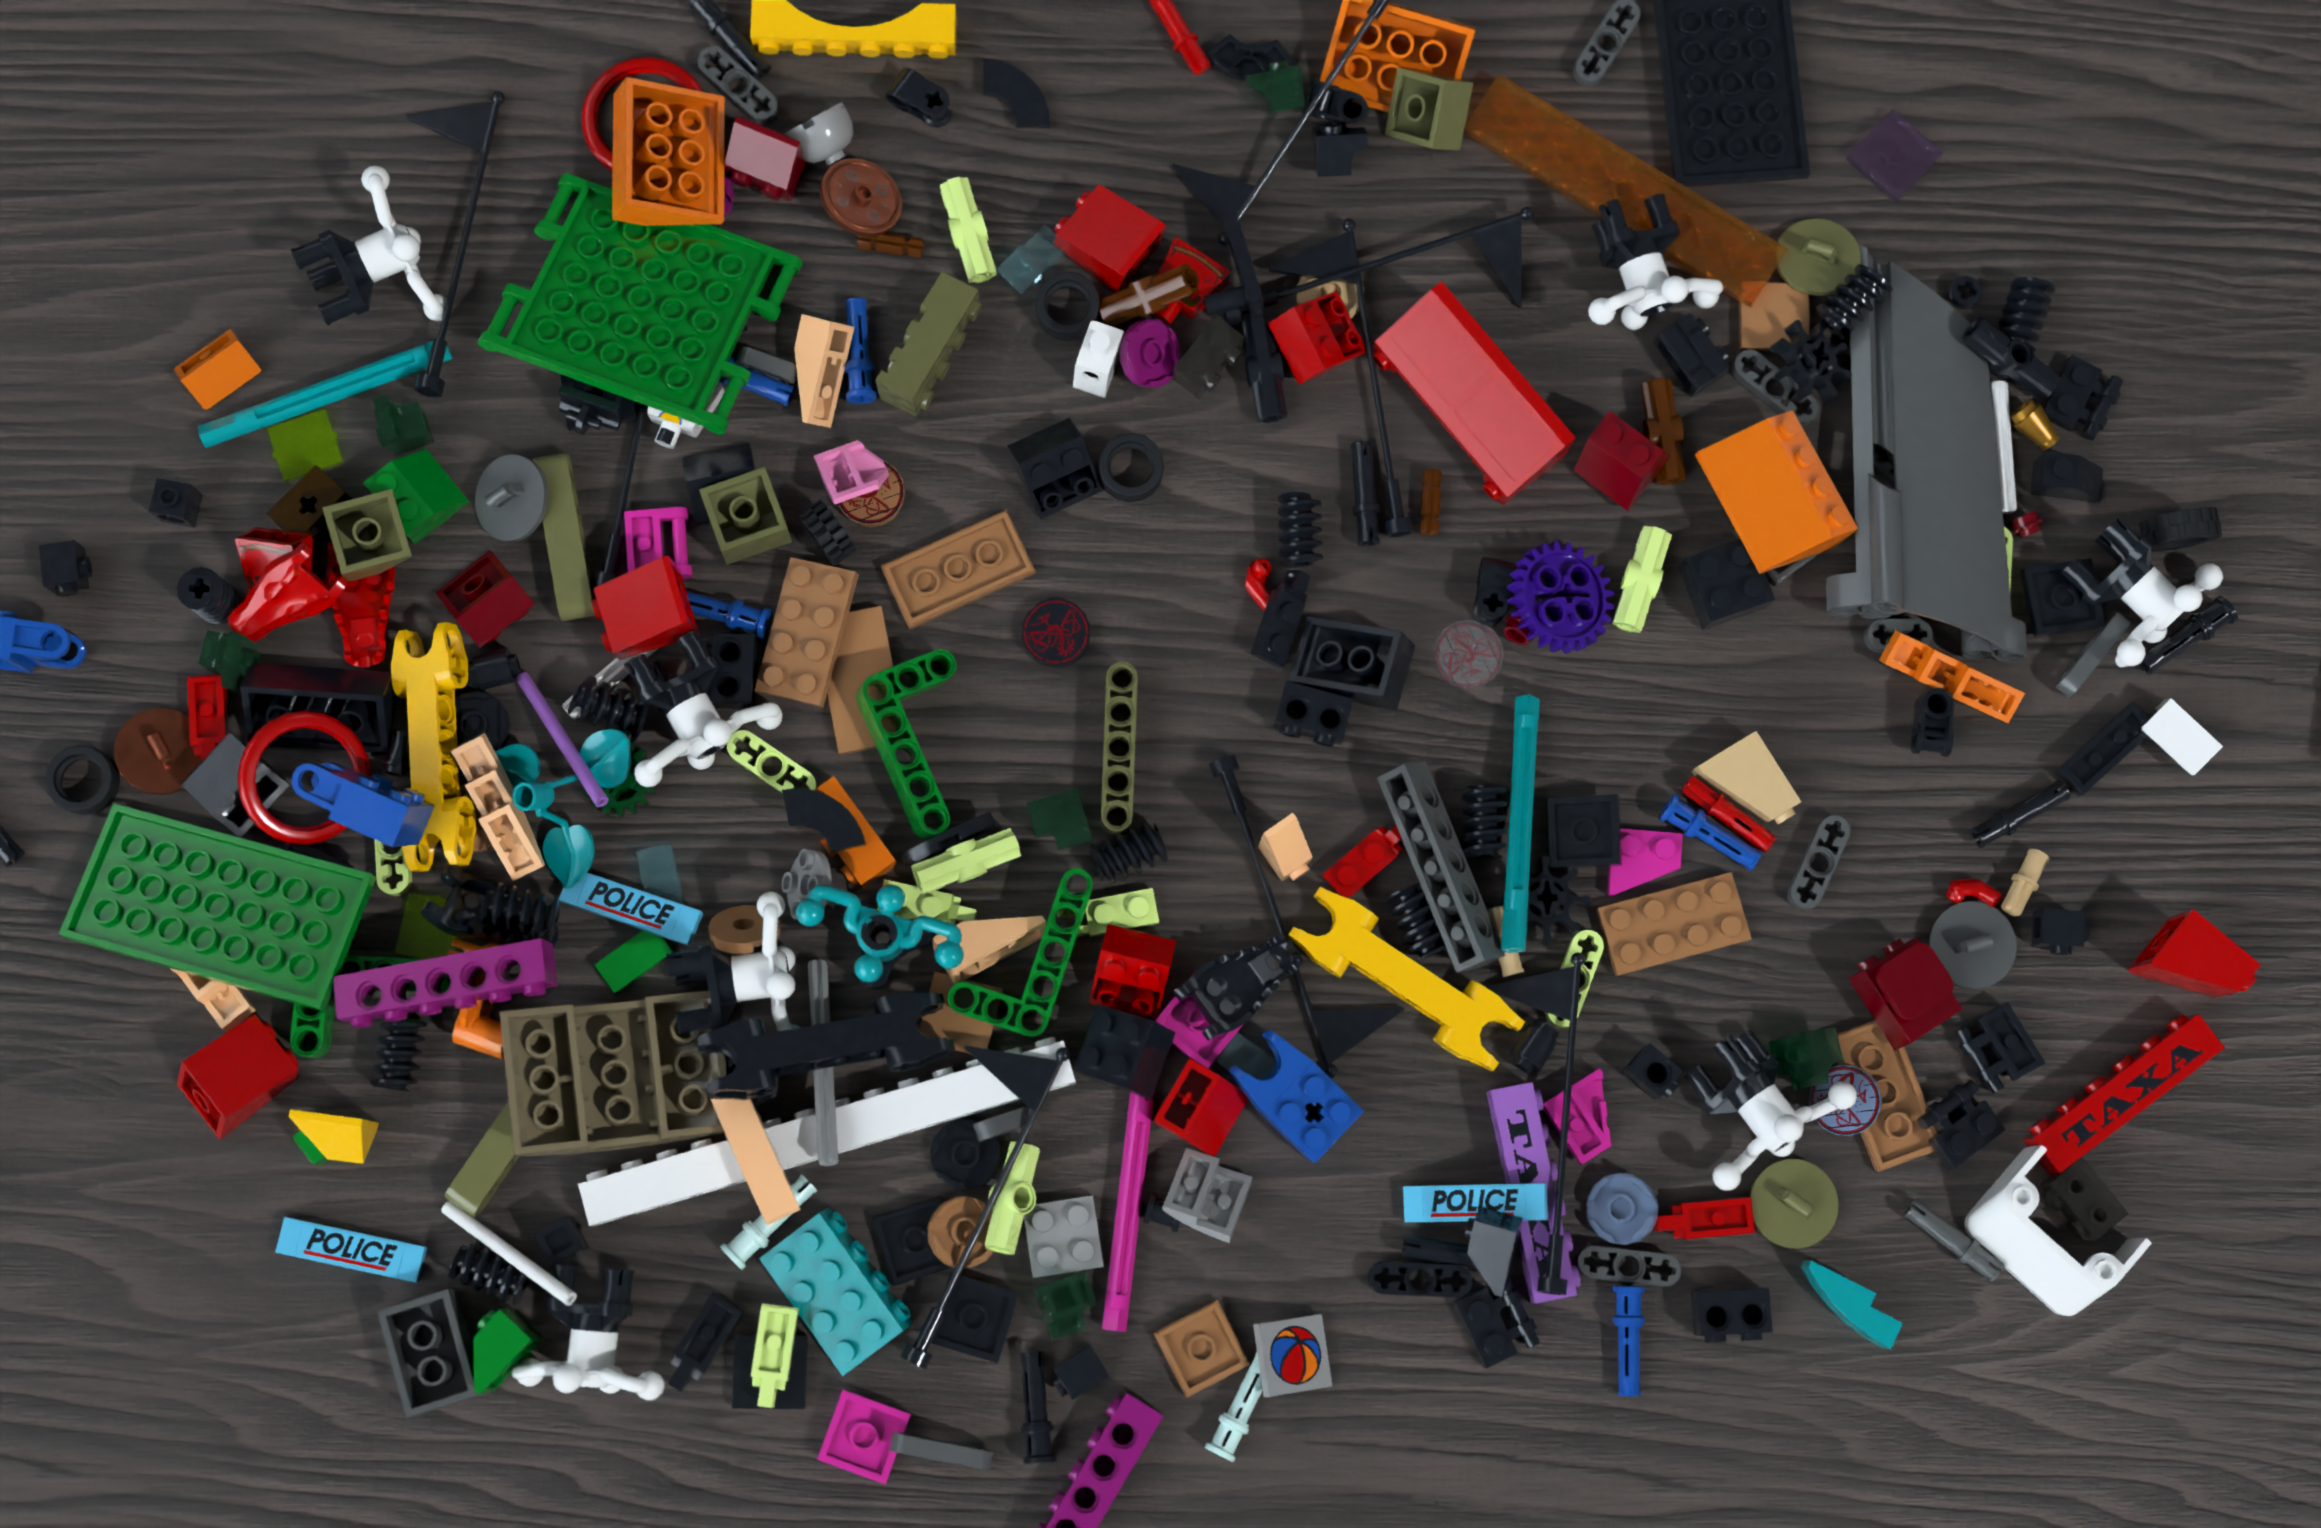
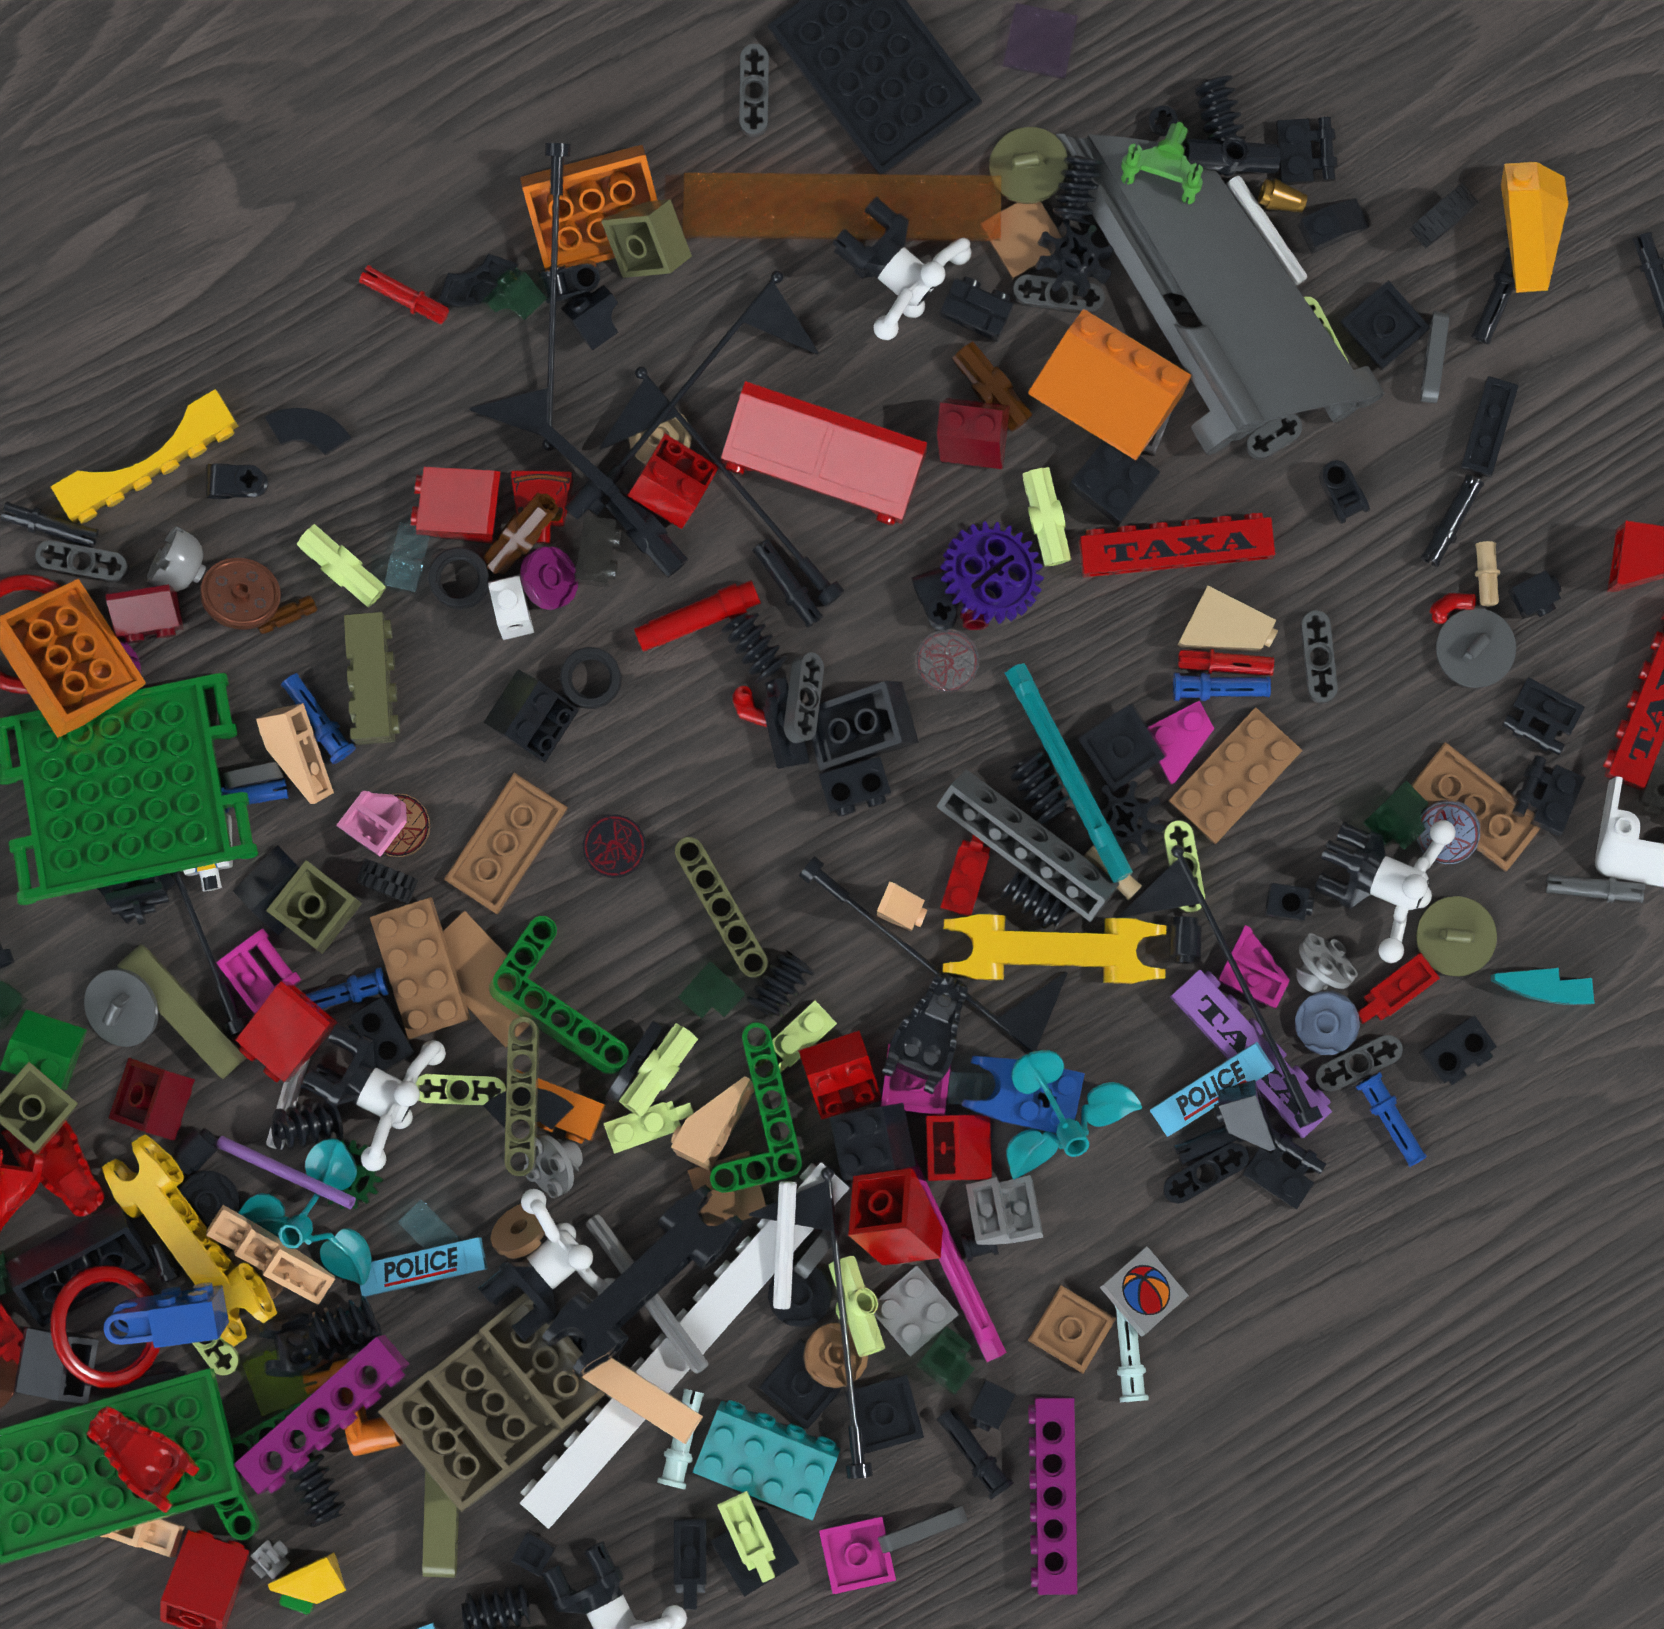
camera: 20 degrees left, 5 degrees up
(253, 917) = (144, 1458): none -> red animal
(313, 1090) = (270, 1559): none -> light grey gear
(509, 1253) = (501, 1587): white piece -> none
(633, 960) = (449, 1306): green tile -> none
(821, 820) = (517, 1080): none -> olive beam
(867, 922) = (614, 1166): teal wheel -> none
(980, 1096) = (784, 1245): none -> white axle
(1099, 1135) = (894, 1218): none -> red slope
(1264, 471) = (725, 604): none -> red piece
(1302, 608) = (795, 708): none -> dark grey beam
(1365, 1156) = (1105, 1106): none -> teal plant
(1430, 502) = (843, 558): reddish brown axle -> none
(1652, 1151) = (1324, 964): none -> light grey plate
(1747, 679) = (1176, 546): none -> red brick
(1906, 991) = (1444, 718): dark red brick -> none
(1951, 322) = (1166, 161): none -> bright green axle
(1957, 677) = (1334, 443): orange slope -> none
(2026, 524) = (1322, 283): dark red plate -> none
(2140, 588) = (1442, 284): wheel -> none
(2181, 736) = (1541, 382): white panel -> none
(2261, 585) = (1535, 216): none -> light orange wedge

